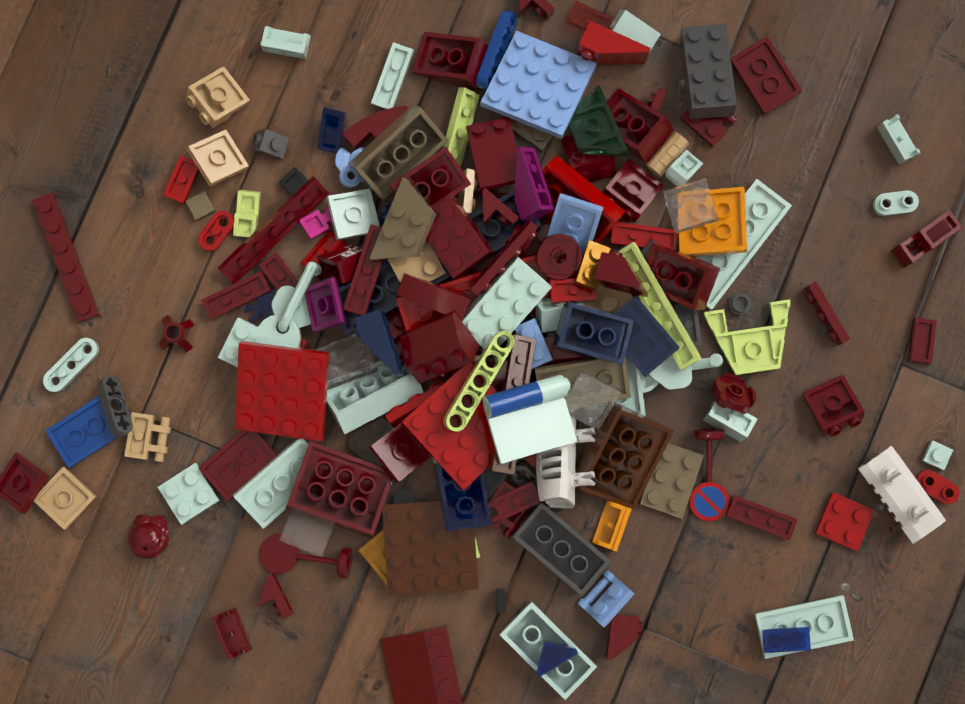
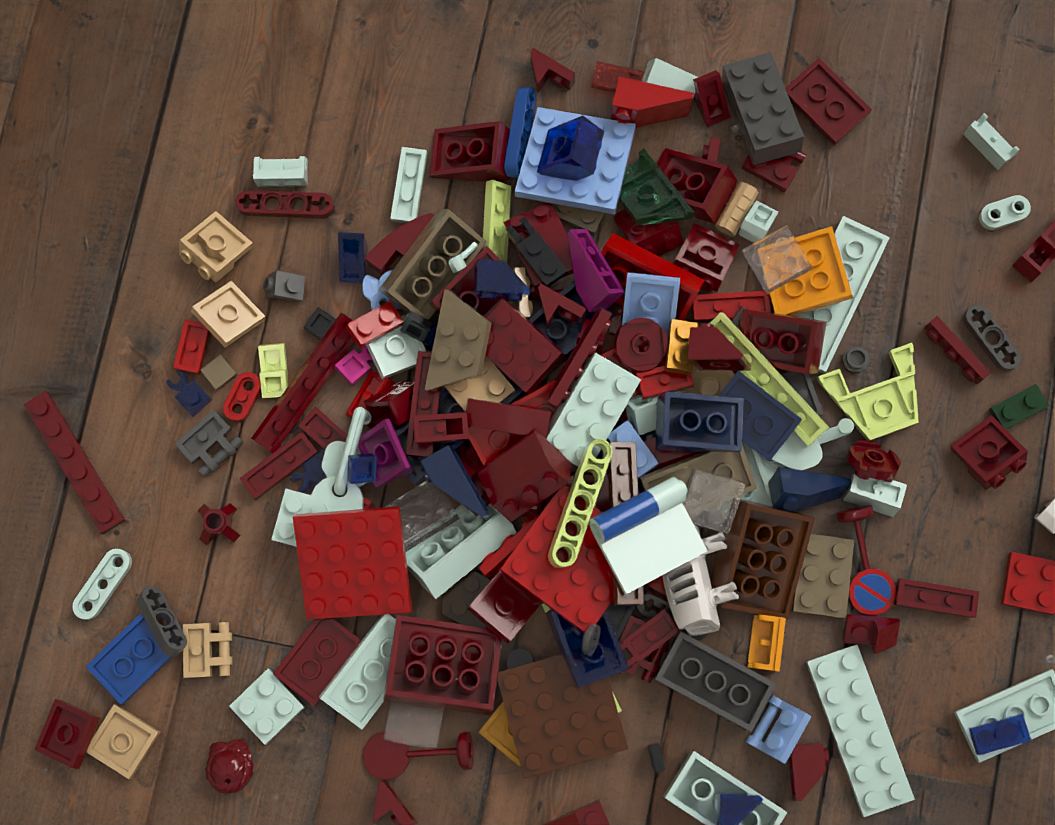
camera: 10 degrees left, 5 degrees down
(173, 221) = (191, 395): none -> clear blue plate
(178, 258) = (204, 437): none -> dark grey plate
(283, 74) = (285, 200): none -> dark red beam
(304, 314) = (362, 468): none -> clear blue plate
(339, 192) = (375, 324): none -> plate
(374, 201) = (416, 326): none -> black tile
(376, 293) = (441, 428): none -> dark red slope
(419, 154) = (457, 262): none -> light aqua hand
(449, 176) = (497, 278): none -> clear blue slope
(465, 494) = (591, 639): none -> dark grey piece
(488, 161) = (538, 254): none -> black hinge
(535, 76) = (571, 150): none -> clear blue slope
(666, 53) = (711, 98): none -> dark red slope
(669, 405) = (802, 489): none -> dark blue slope
(673, 612) = (860, 731): none -> light aqua plate
(705, 535) = (871, 630): none -> dark red slope
(863, 300) = (1002, 338): none -> dark grey beam
(868, 372) = (1019, 407): none -> dark green plate

